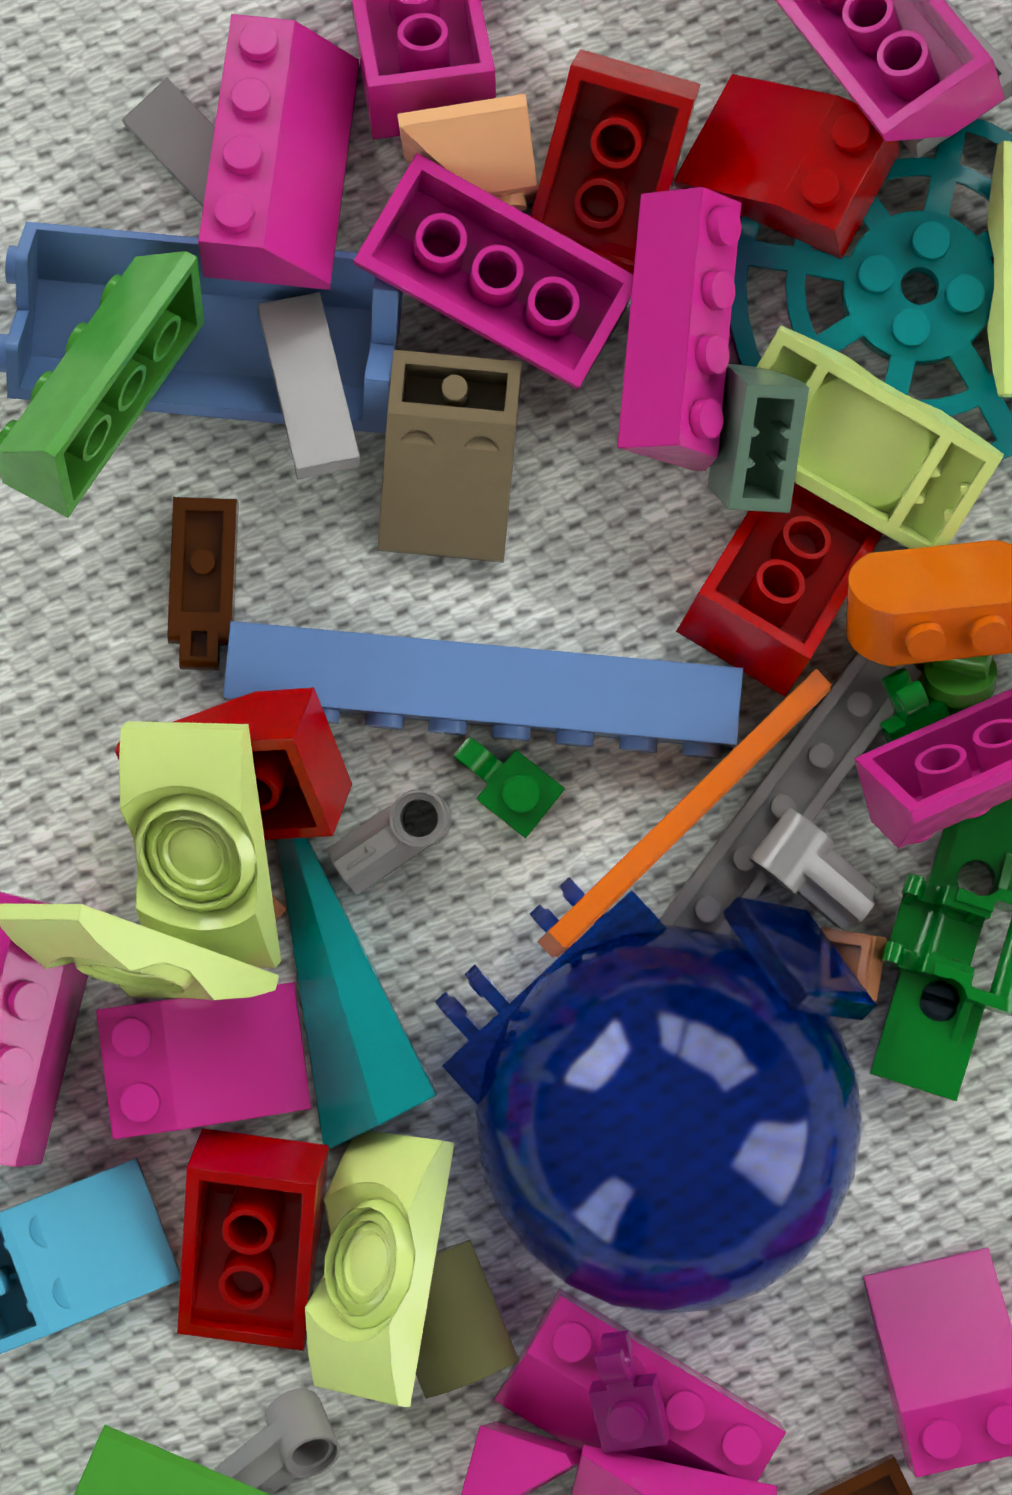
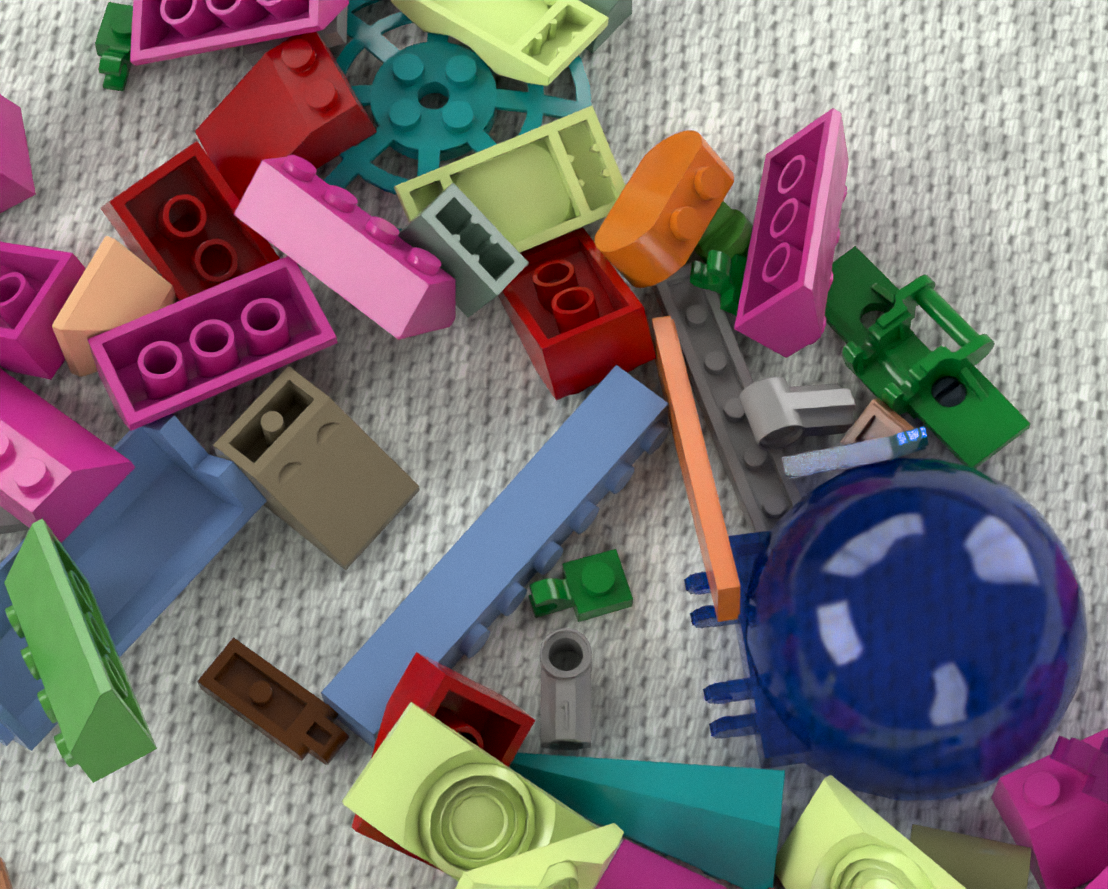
camera: 55 degrees left, 20 degrees down
(308, 386) = (192, 527): light grey tile -> none

